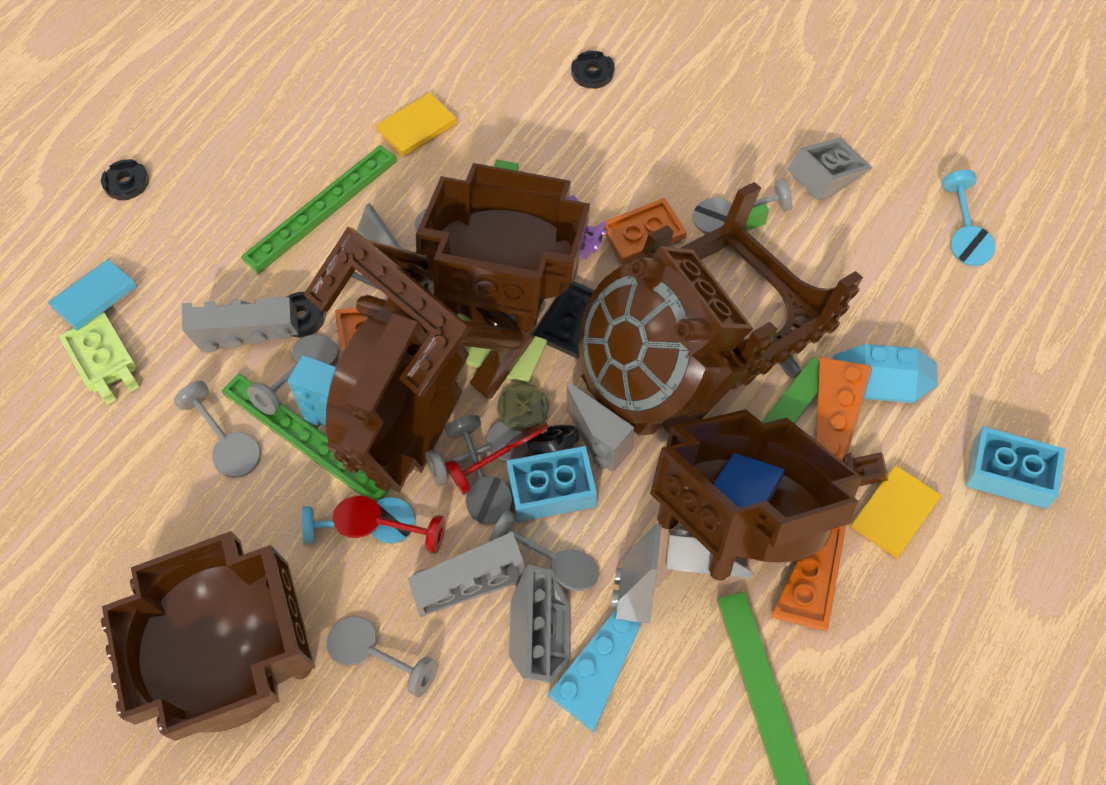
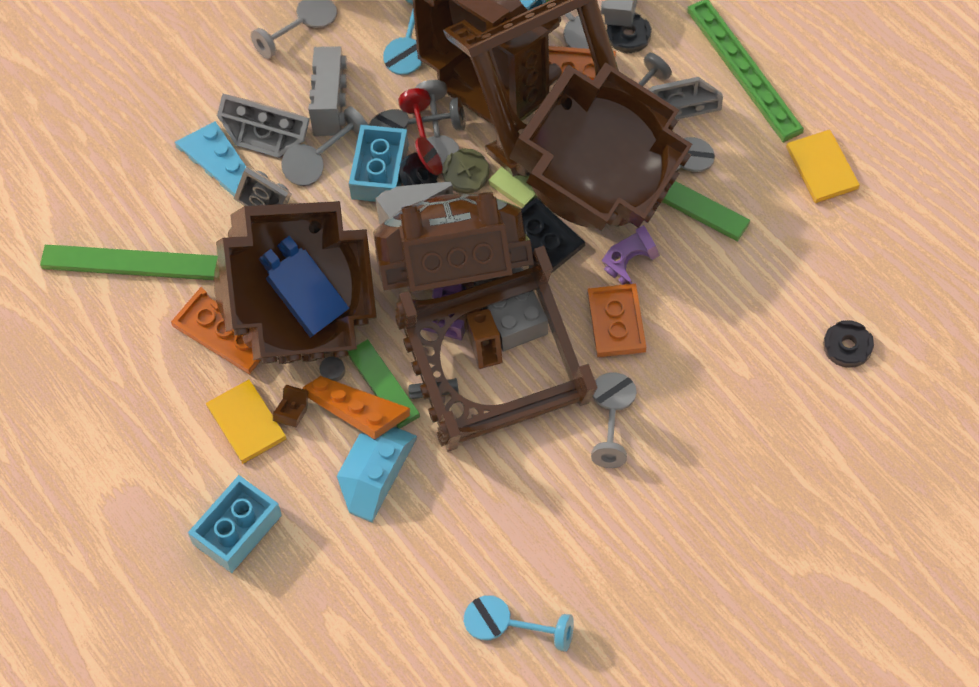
camera: 110 degrees right, 0 degrees up
(362, 515) = (404, 33): red piece -> none
(757, 217) = (593, 421): bright green tile -> none
(827, 167) = (632, 518): light grey slope -> none

